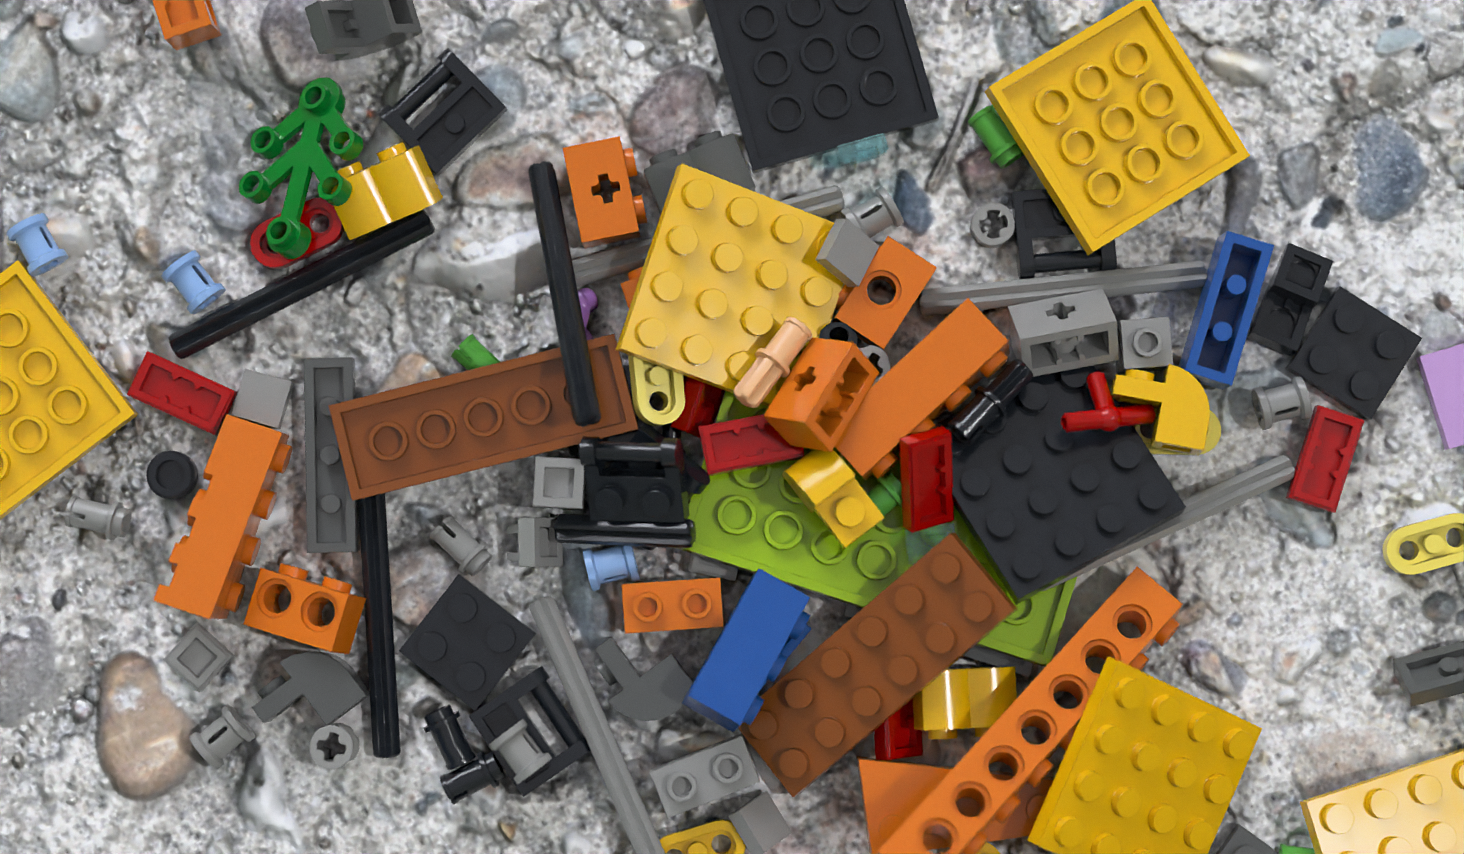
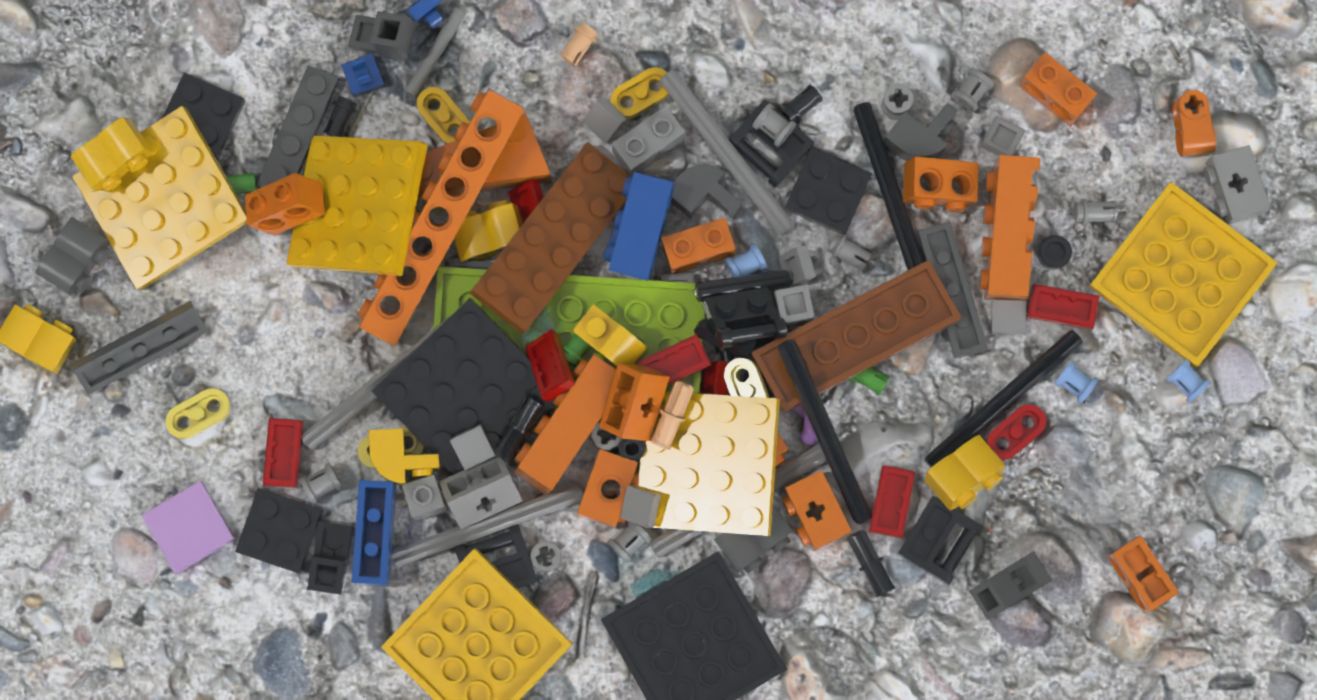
camera: 165 degrees right, 5 degrees down
(99, 705) = (1057, 89): none -> orange brick
(318, 106) = (1025, 480): green plant -> none
(449, 736) = (823, 126): black pin -> none
(495, 181) = (891, 501): none -> red plate
(546, 103) = (870, 563): none -> black axle
(995, 137) = (558, 616): bright green pin -> none
(1060, 392) = (472, 447): none -> light grey tile
(1106, 414) = (438, 439): red piece -> none
(1248, 810) = (284, 204): none -> orange brick

